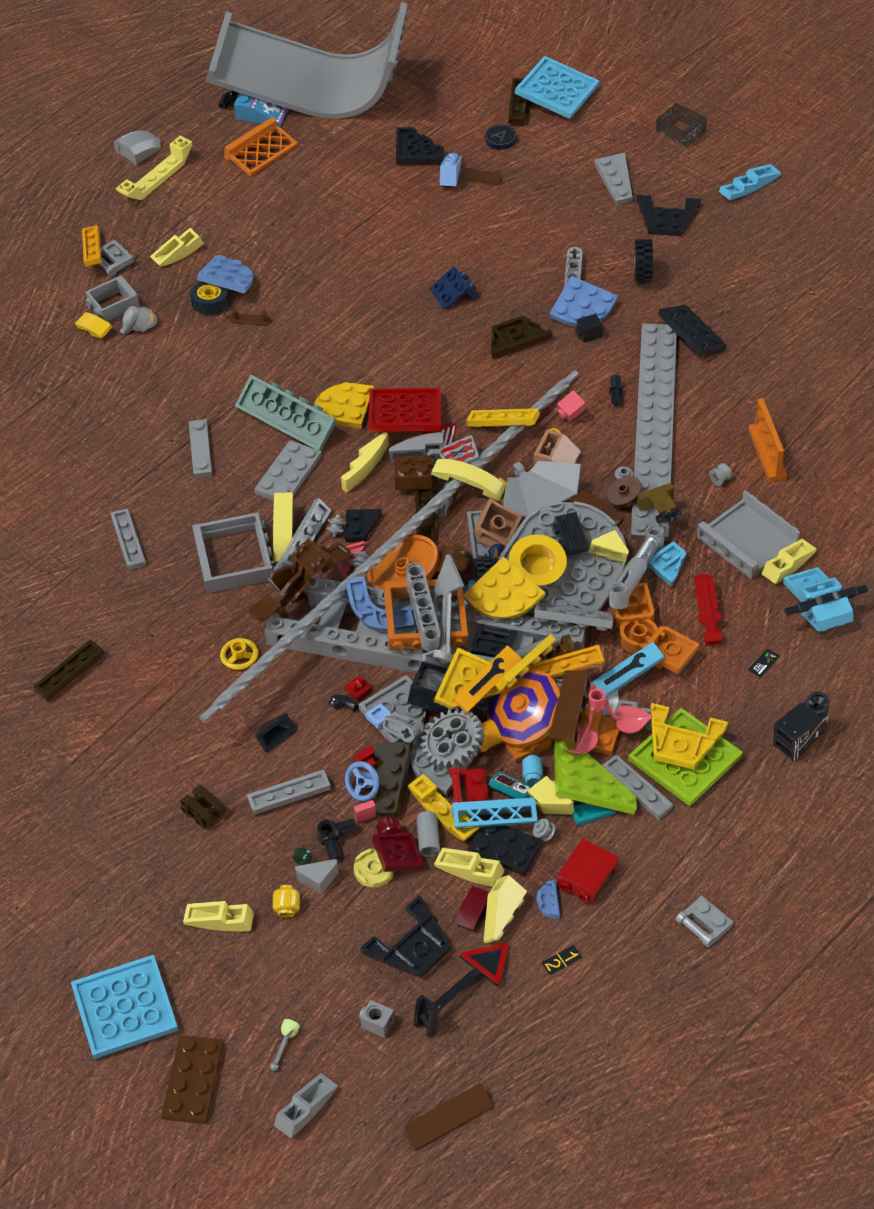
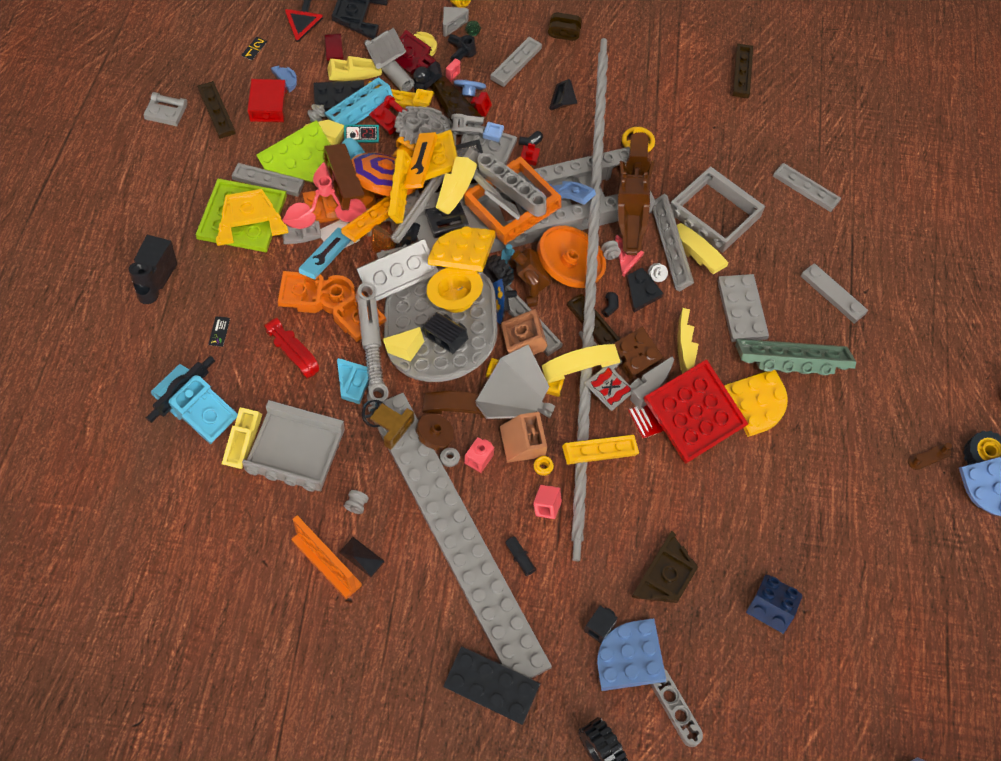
camera: 140 degrees right, 10 degrees up
(398, 521) = (613, 304): none -> black arm
(402, 807) = (425, 77): none -> black tile
(421, 865) = (385, 48): none -> light grey piece
(470, 638) = (456, 184): none -> light yellow slope
(501, 904) = (312, 52): light yellow slope -> none
(599, 462) = (479, 454): none -> coral brick
(649, 889) = (216, 110): none -> dark brown plate
(738, 444) = (361, 557): none -> black slope

